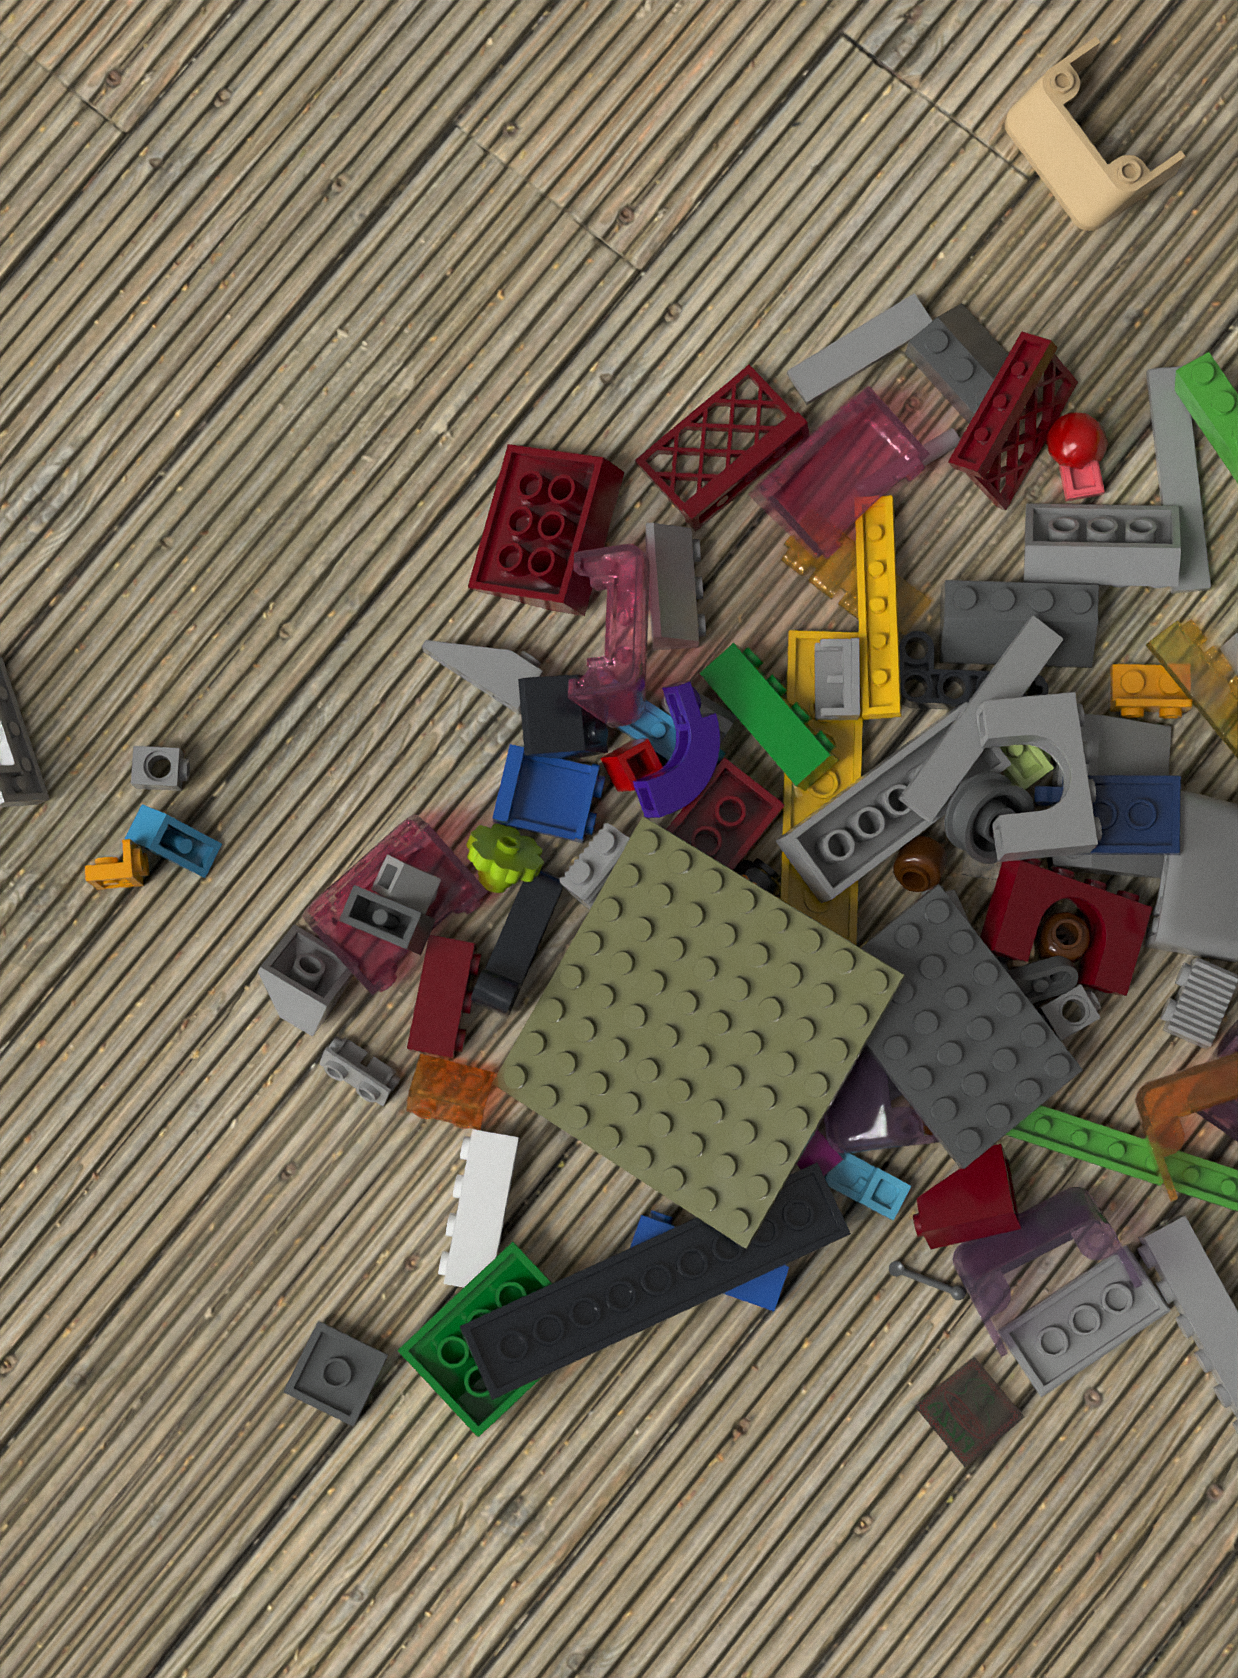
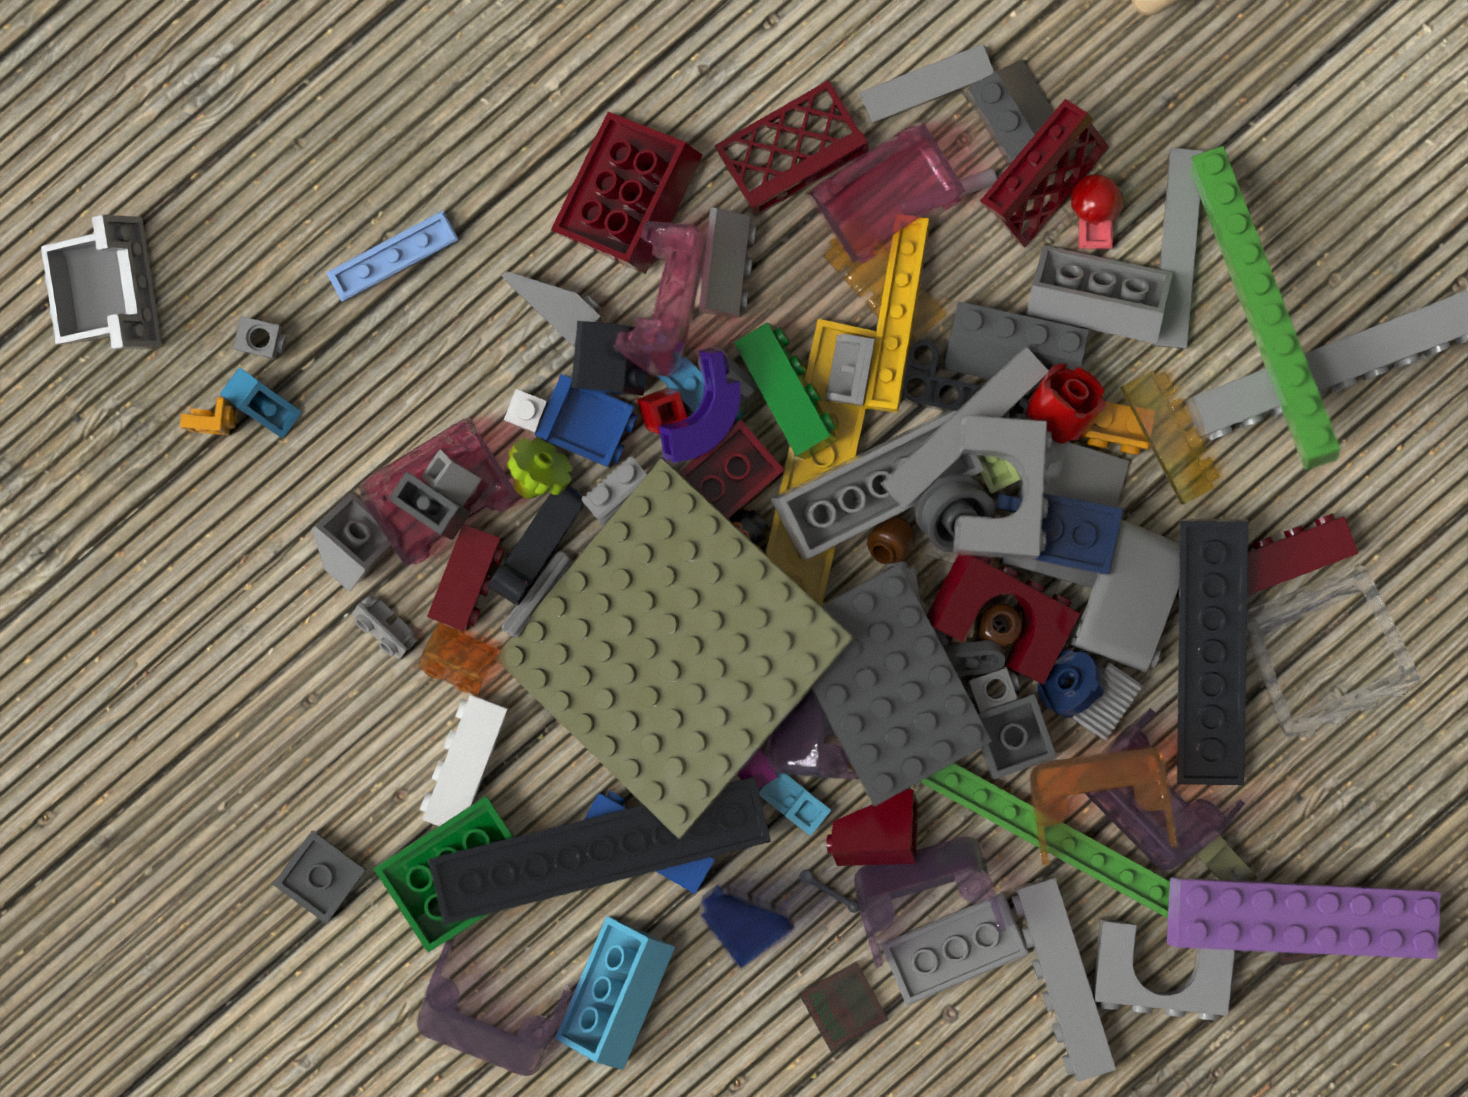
camera: 10 degrees right, 5 degrees up
(294, 649) = (392, 256): none -> light blue tile
(477, 794) = (525, 411): none -> white brick
(526, 1000) = (536, 593): none -> light grey axle
(564, 1530) = (441, 1023): none -> clear purple windscreen
(702, 1445) = (614, 993): none -> medium azure slope
(840, 1332) = (744, 922): none -> clear blue windscreen
(1093, 668) = (1067, 402): none -> red brick
(1110, 1061) = (1016, 736): none -> dark grey brick
(1174, 996) = (1084, 691): none -> dark blue plate

